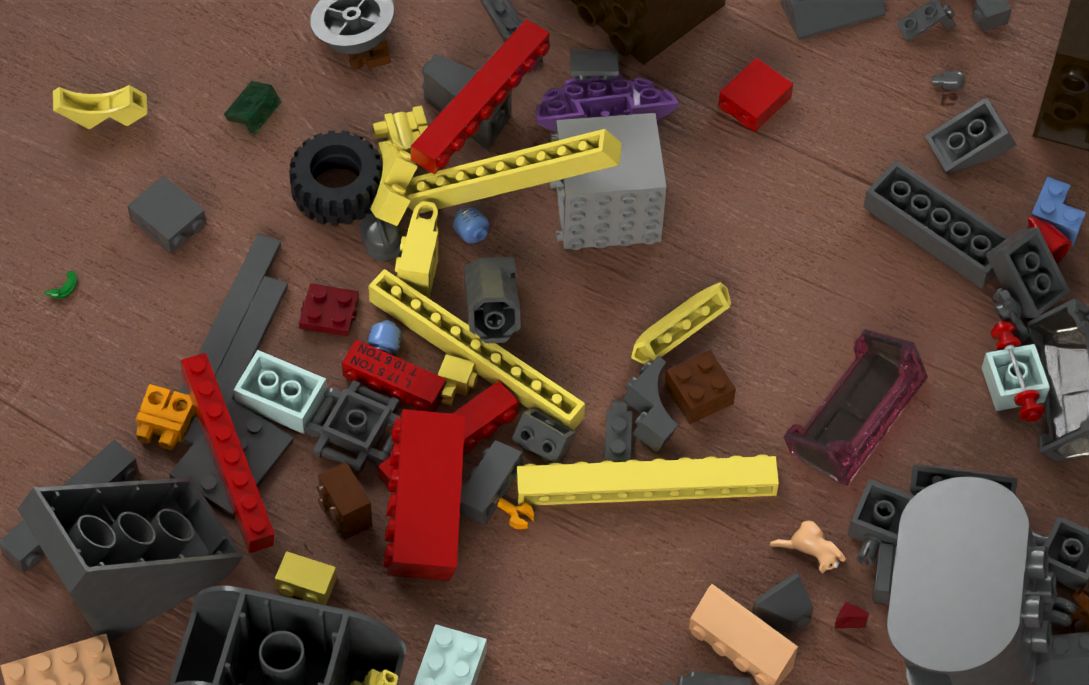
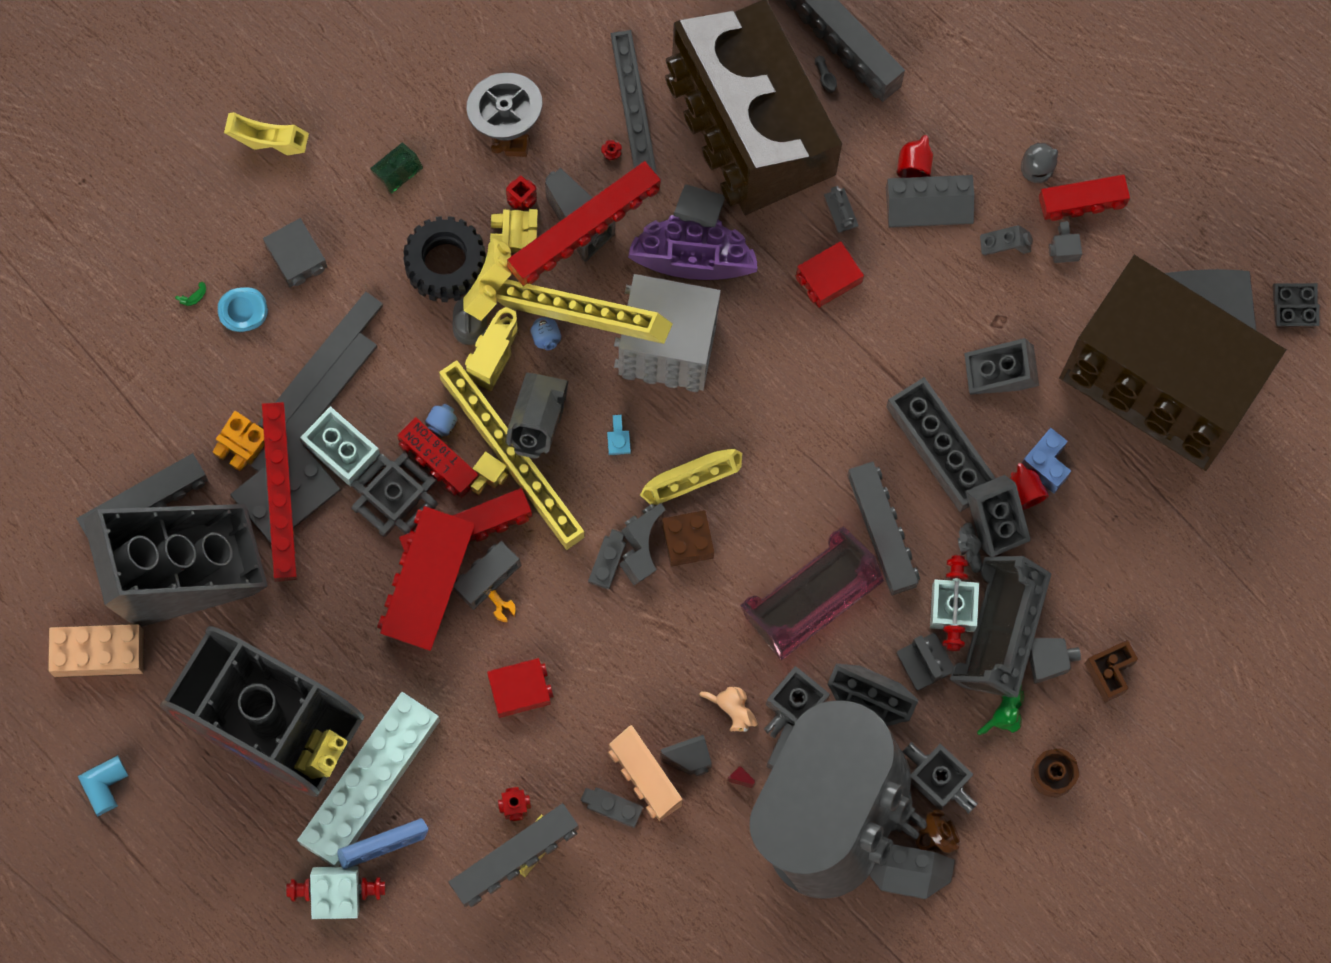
camera: 15 degrees right, 15 degrees up
(125, 284) = (242, 309): none -> medium azure piece
(305, 578) = (312, 618): light yellow brick -> none
(329, 310) = (404, 379): dark red plate -> none
(344, 501) = (363, 562): reddish brown brick -> none
(398, 95) = (519, 188): none -> red brick
(479, 41) = (611, 155): none -> red plate
(543, 436) = (543, 547): dark grey brick -> none
(566, 589) = (520, 687): none -> red brick
(586, 311) = (618, 440): none -> medium azure plate
(647, 480) = (616, 610): light yellow brick -> none
(742, 33) = (840, 209): none -> dark grey hinge
(907, 322) = (882, 528): none -> dark grey brick
(950, 80) = (1005, 305): dark grey cylinder -> none
(1004, 444) = (925, 661): none -> dark grey bracket

